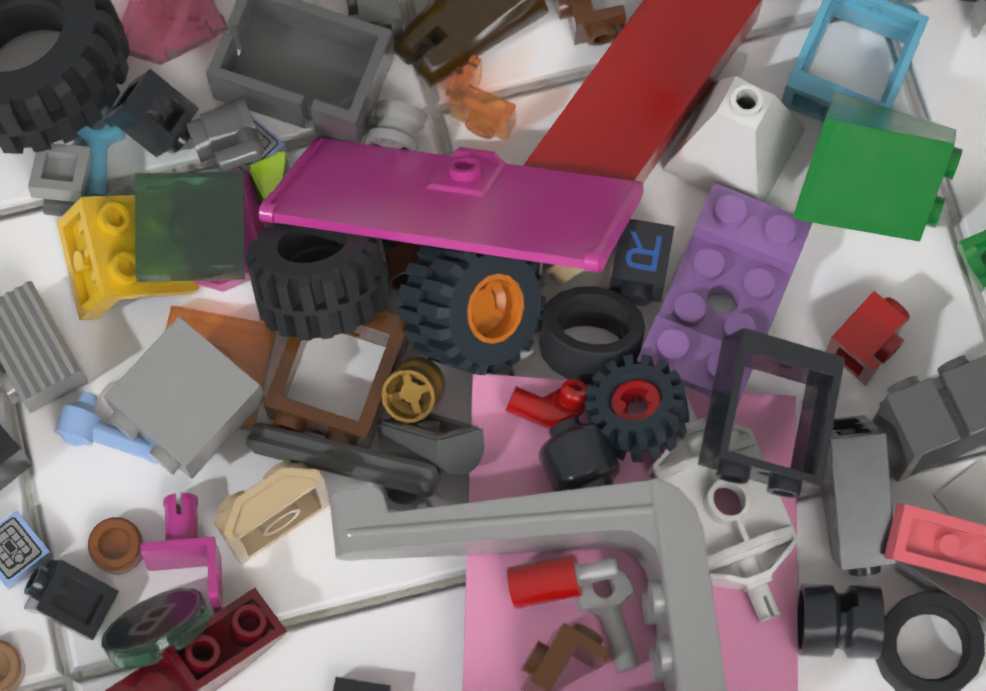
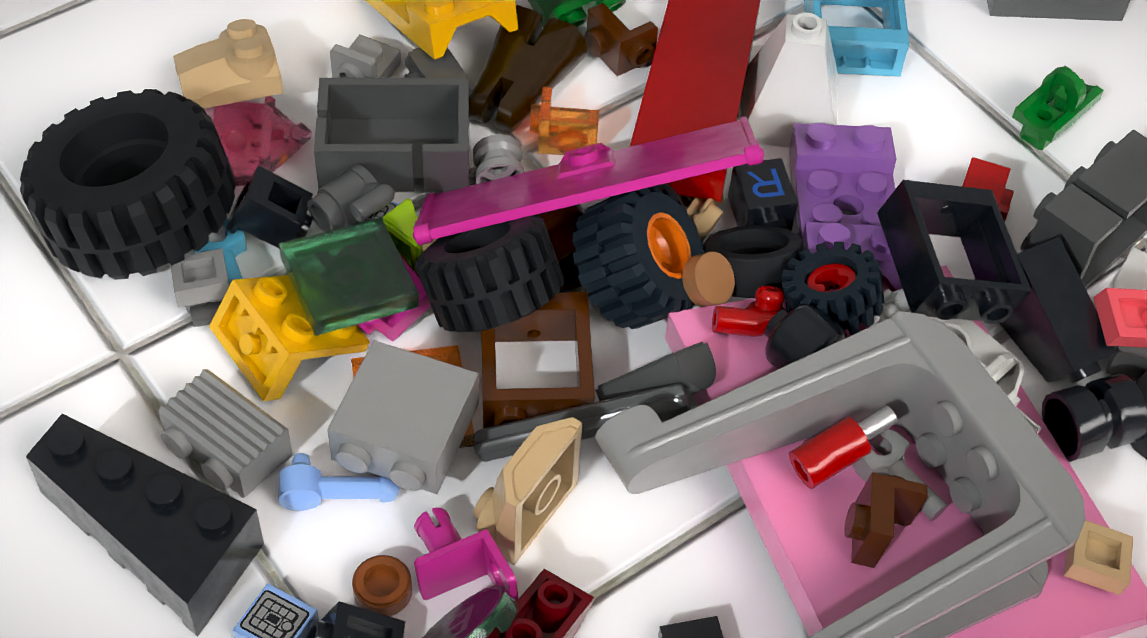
camera: 25 degrees left, 20 degrees down
(404, 396) = (625, 342): pearl gold wheel -> none
(526, 351) = (708, 279): none -> medium nougat tile
(877, 170) = (922, 69): green slope -> none

